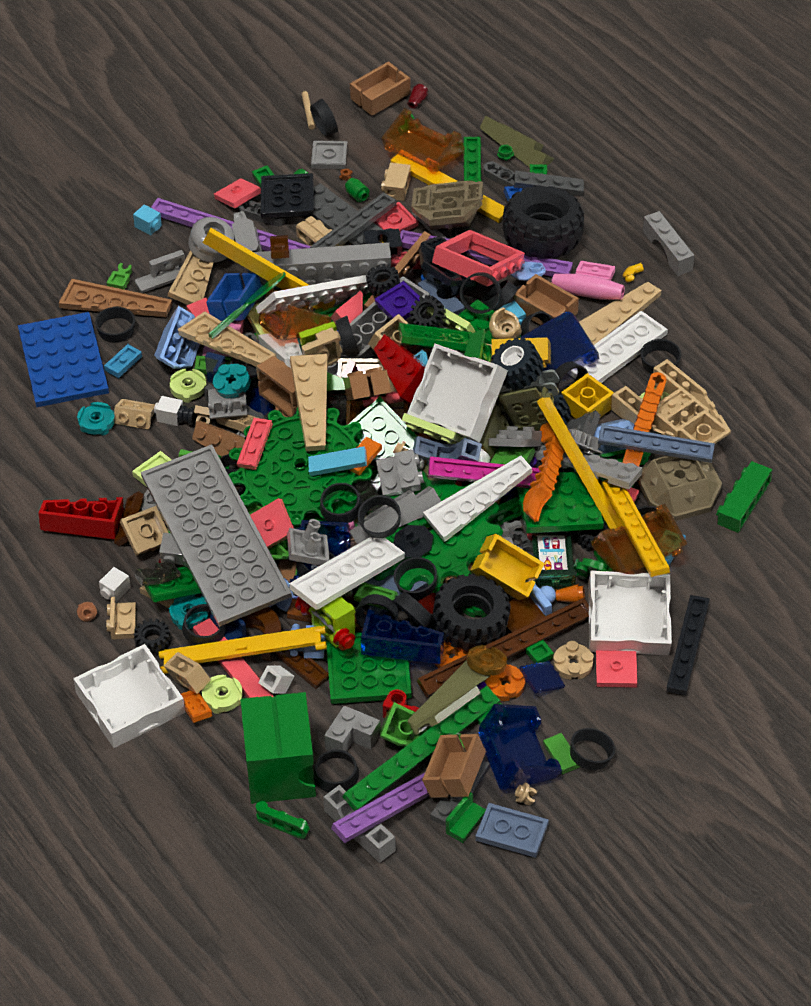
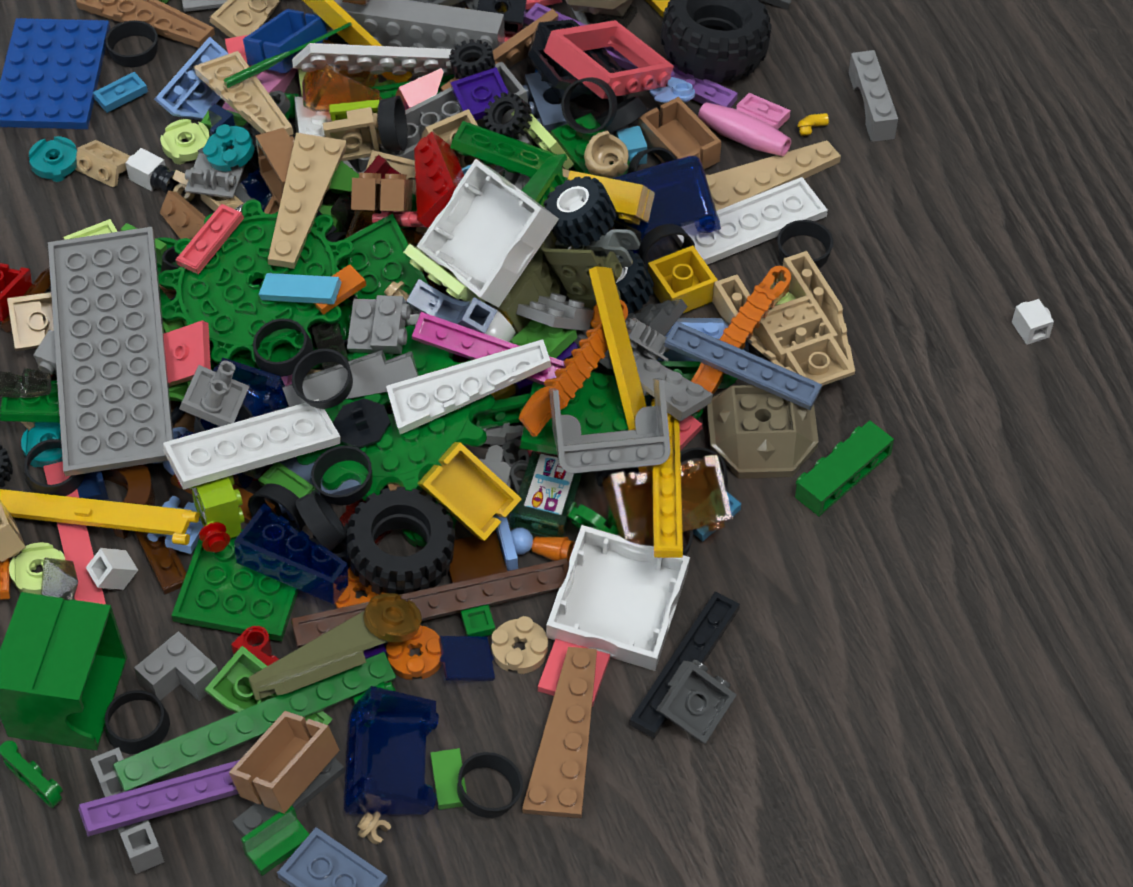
camera: 15 degrees right, 5 degrees up
(239, 691) = (59, 578): none -> clear smoke slope
(614, 508) = (613, 450): none -> light grey windscreen
(632, 723) = (561, 762): none -> medium nougat wing
(706, 663) = (696, 700): none -> dark grey plate

